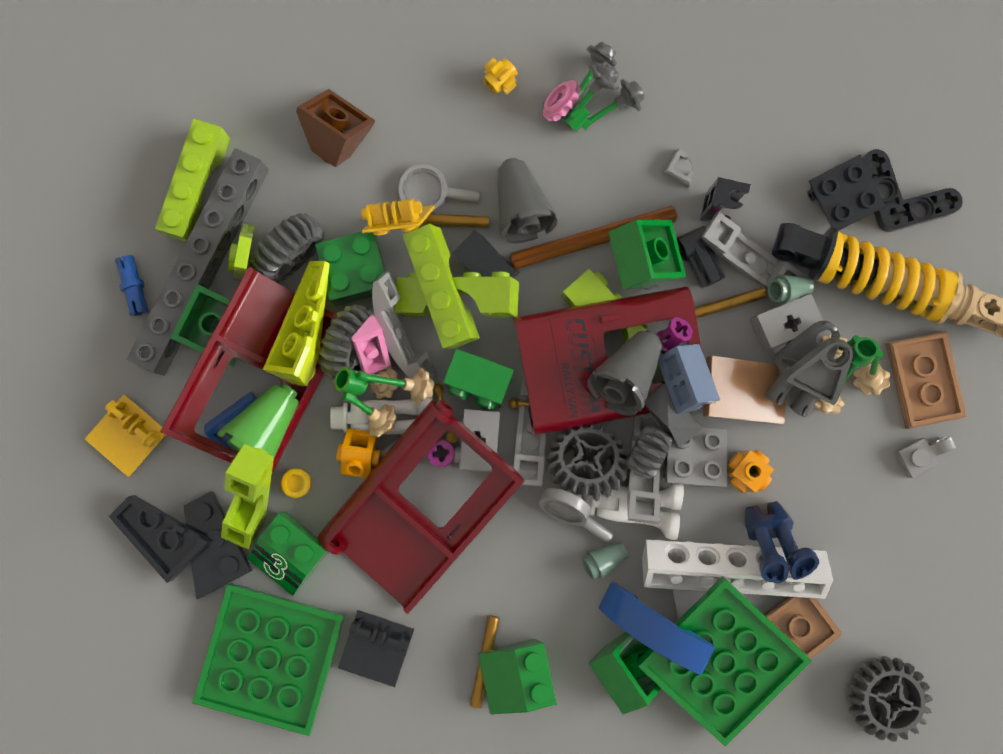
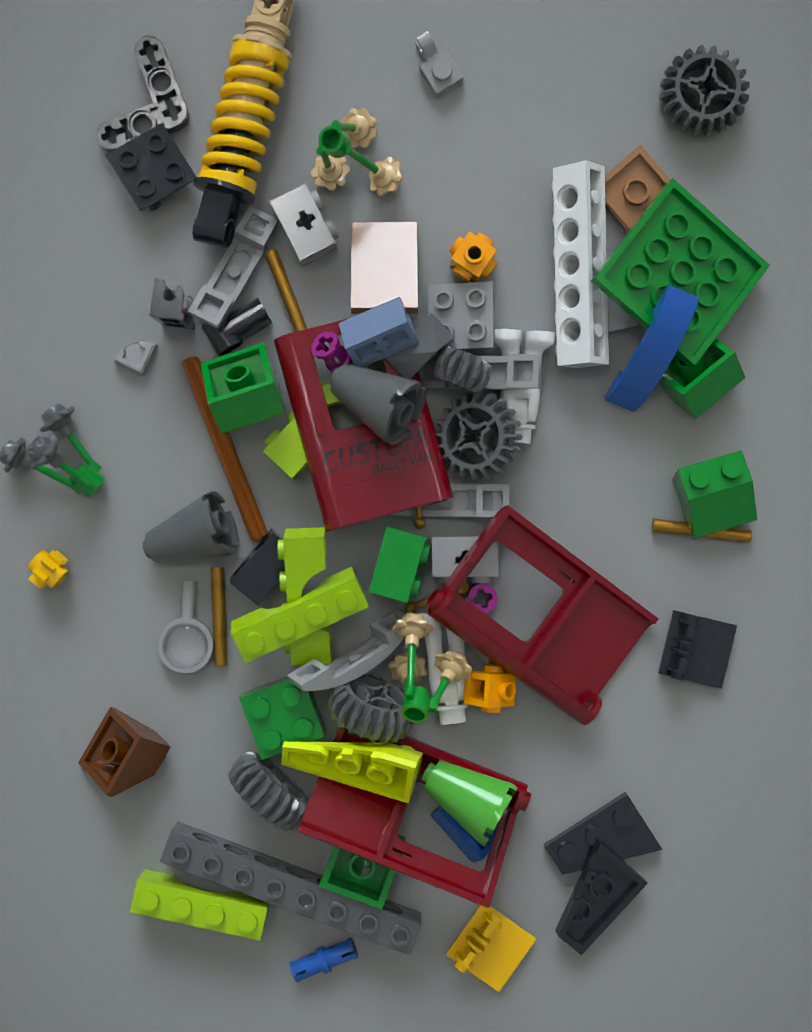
camera: 95 degrees left, 5 degrees up
(240, 252) = (283, 841): lime wing -> none
(250, 483) = (539, 803): lime arch -> none
(268, 659) = (718, 764): green plate -> none
(287, 552) = (603, 755): green slope -> none
(296, 483) = (527, 754): yellow tile -> none
(371, 347) = (374, 686): bright pink slope -> none
(399, 215) = (223, 667): yellow hinge -> none
(561, 100) = (71, 497): bright pink gear -> none
(572, 511) = (533, 448): light grey piece -> none
(604, 560) = (582, 409): sand green cone -> none
(778, 525) = (529, 222): dark blue piece -> none
(789, 288) = (266, 227): sand green cone -> none
(811, 368) = (355, 197): dark grey piece -> none
(926, 380) = (354, 66): medium nougat tile -> none

